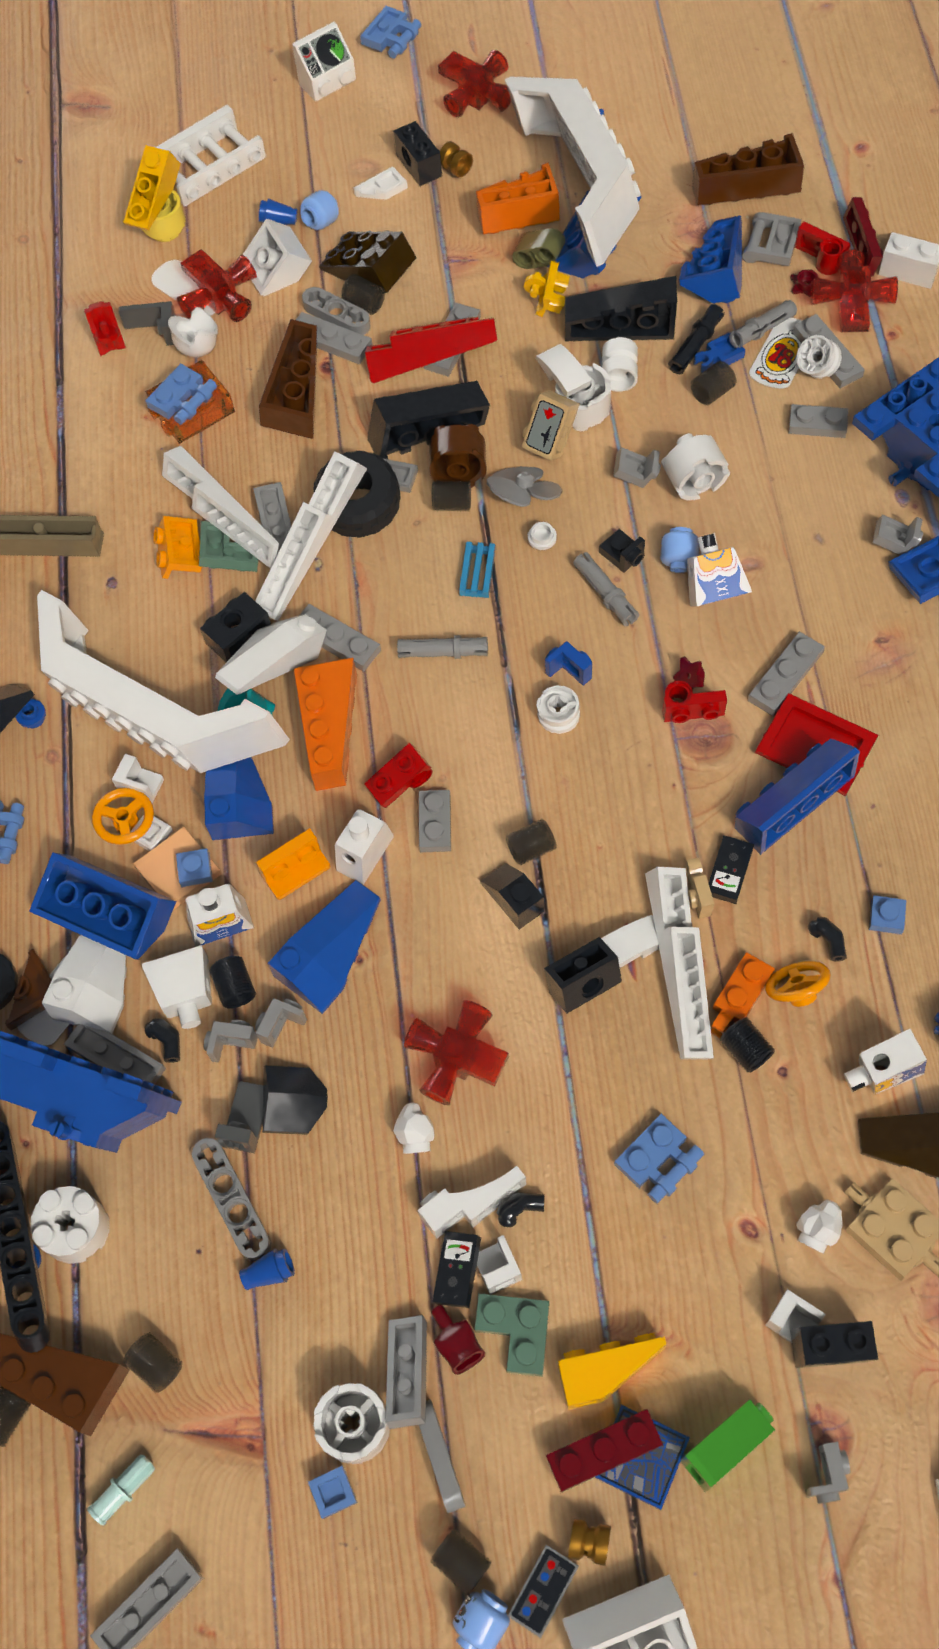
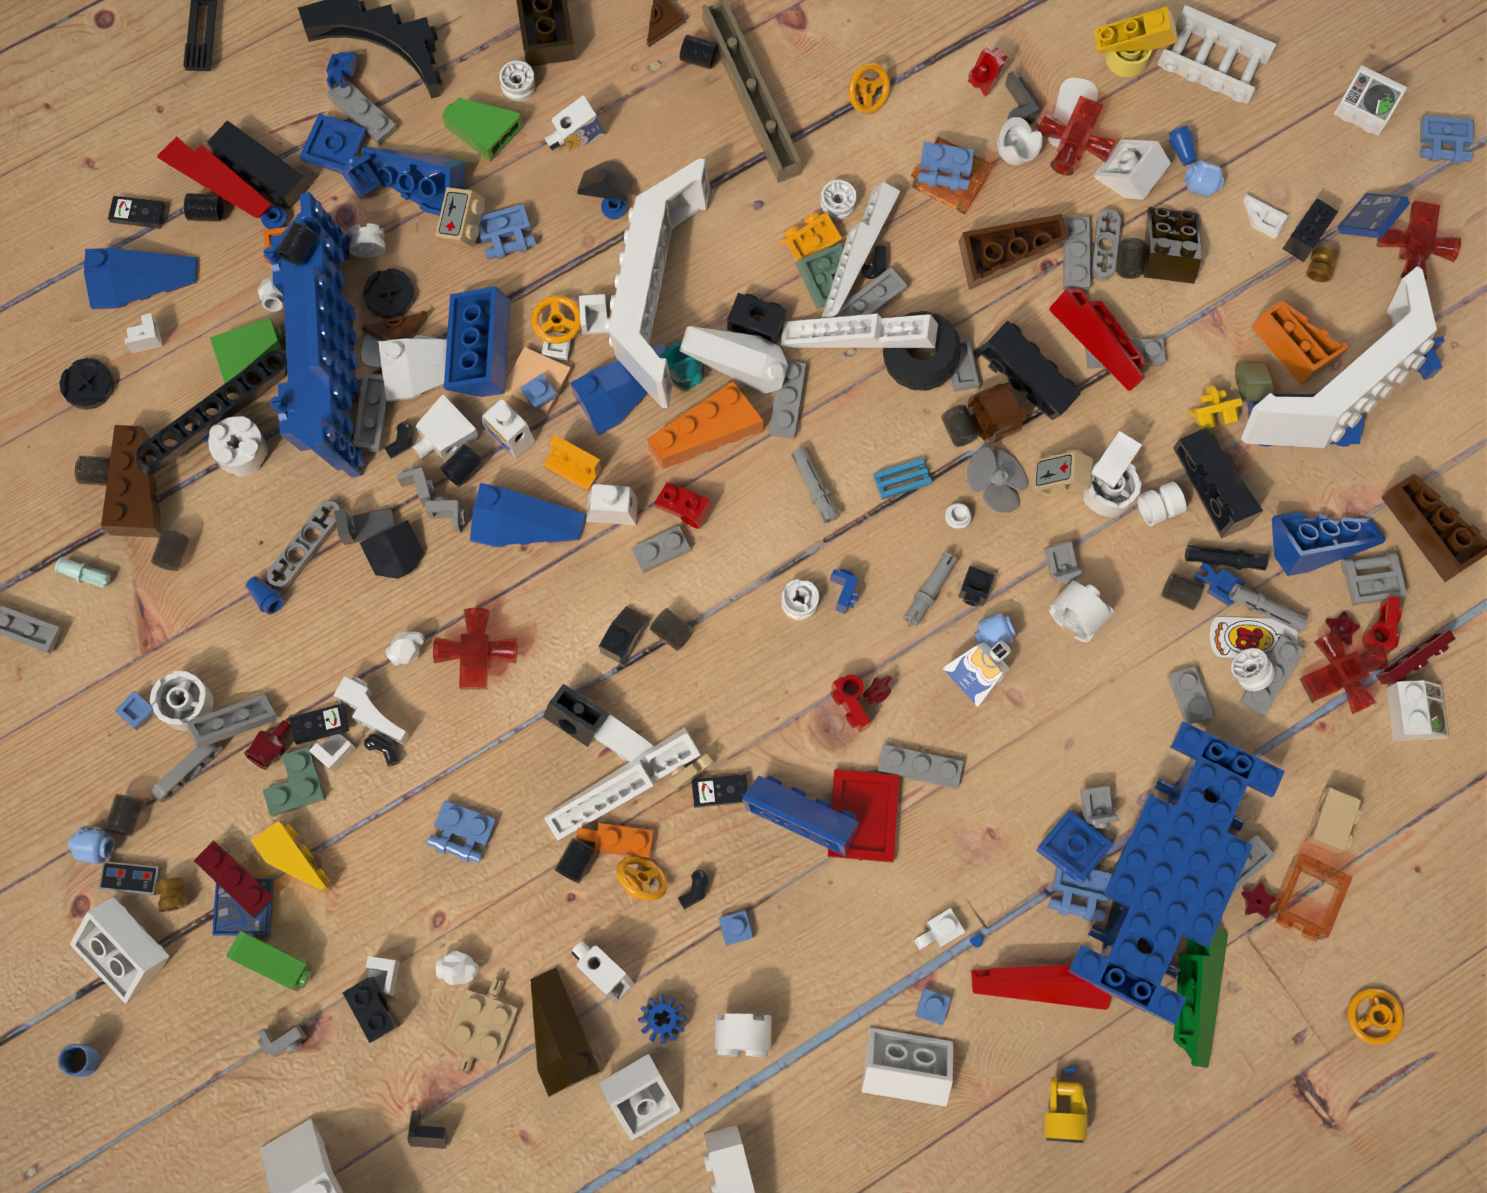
camera: 55 degrees right, 10 degrees up
(53, 437) = (865, 88): none -> light orange piece
(152, 504) = (847, 195): none -> white wheel
(242, 498) = (879, 264): none -> black arm
(432, 101) = (1373, 215): none -> tile

